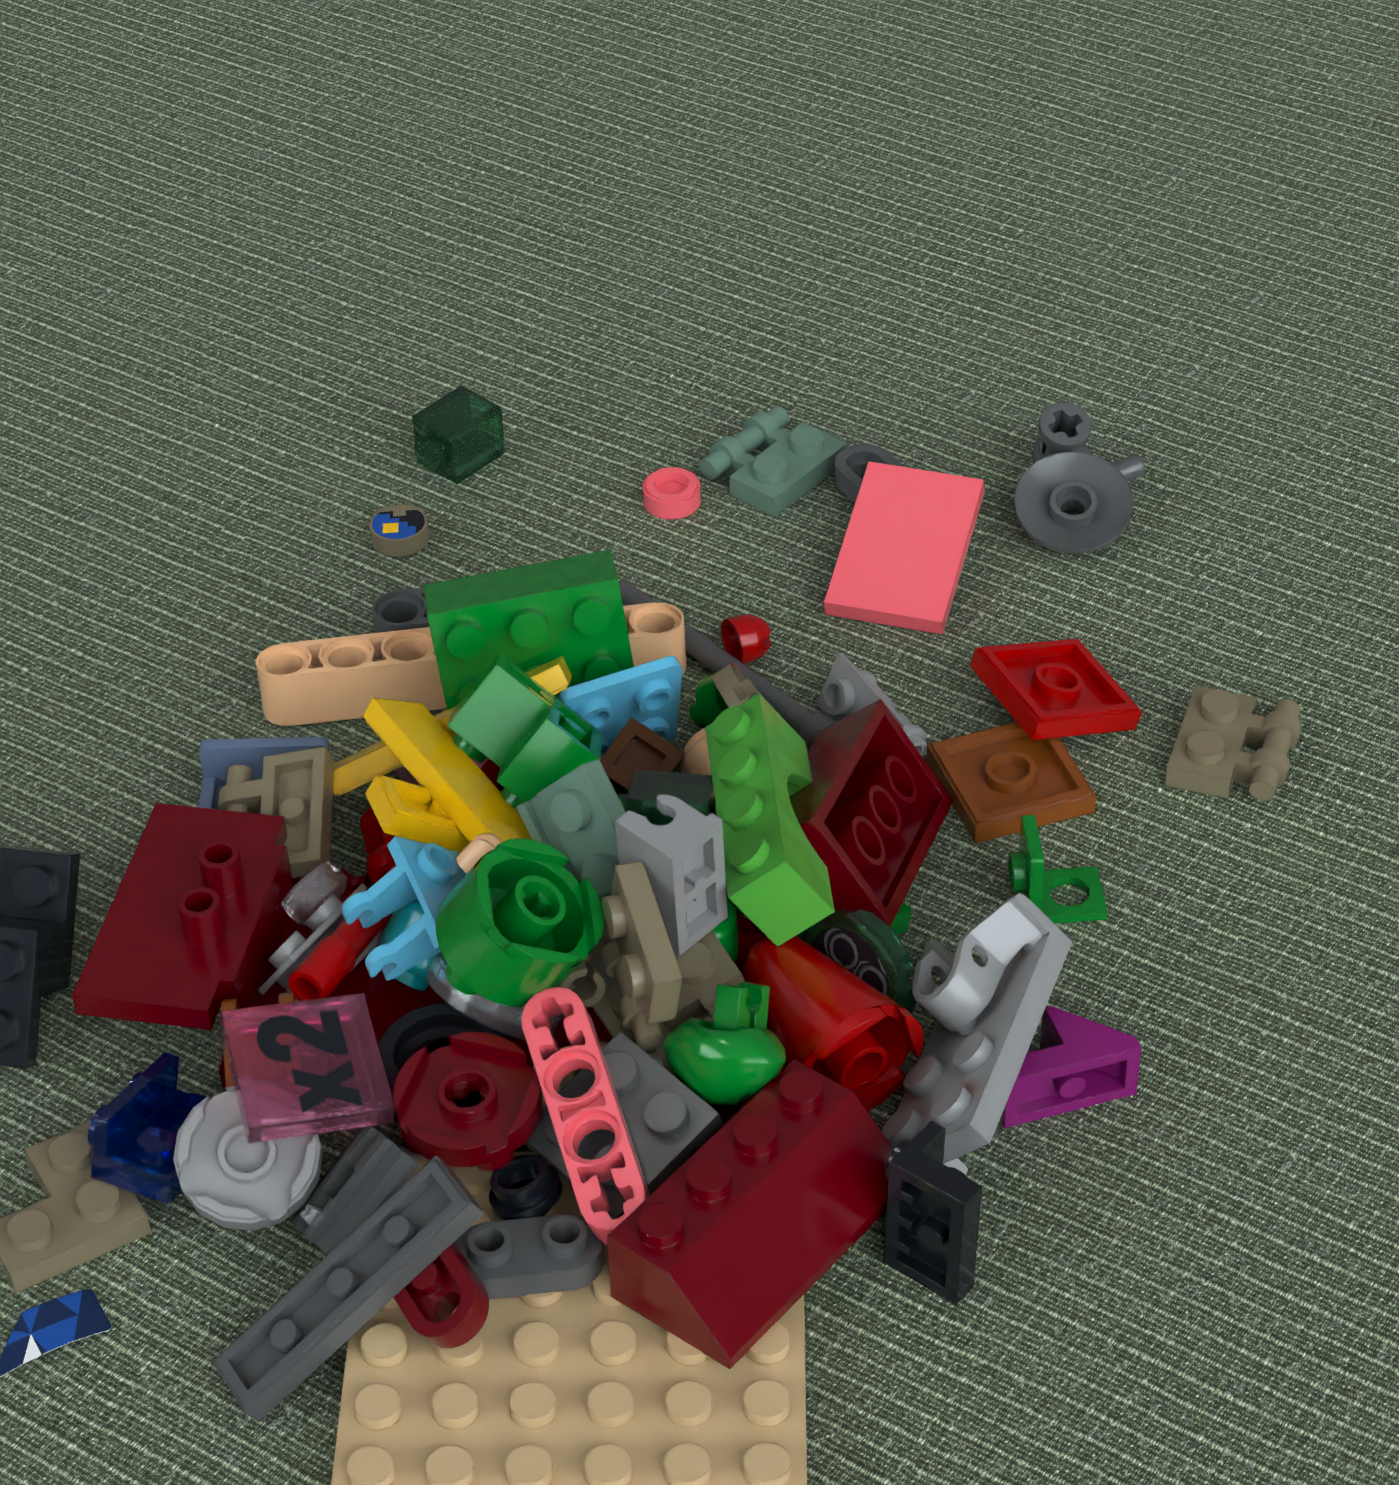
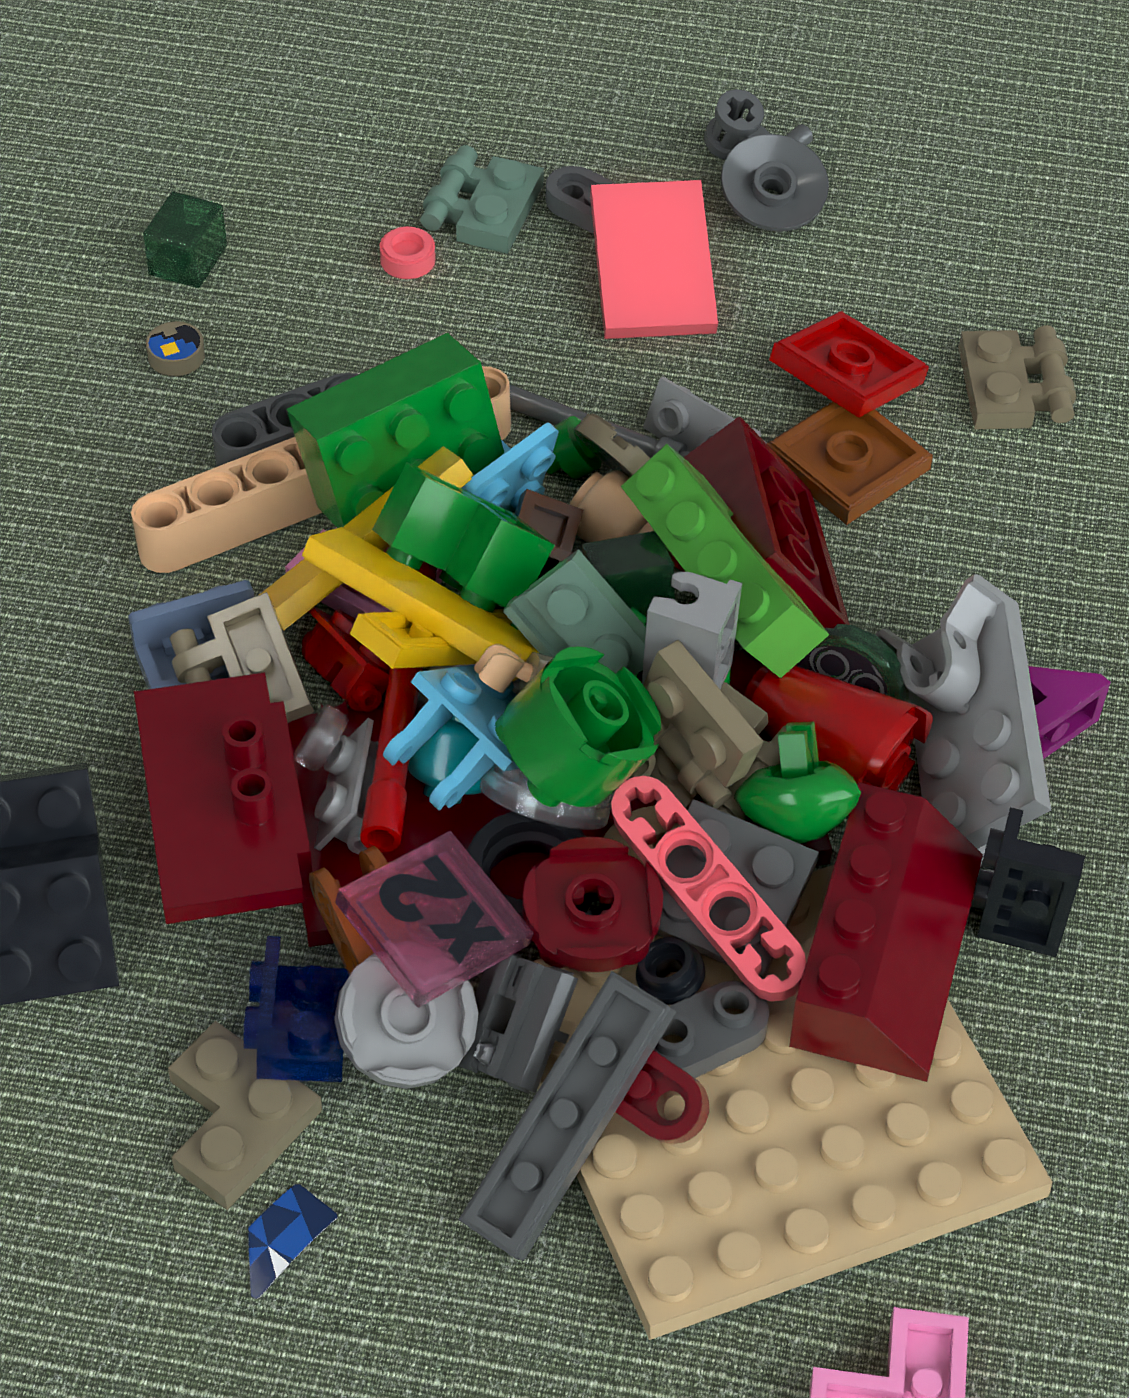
camera: 25 degrees left, 10 degrees up
(745, 637) = (555, 379): red hinge -> none
(1030, 878) = (927, 541): green bracket -> none

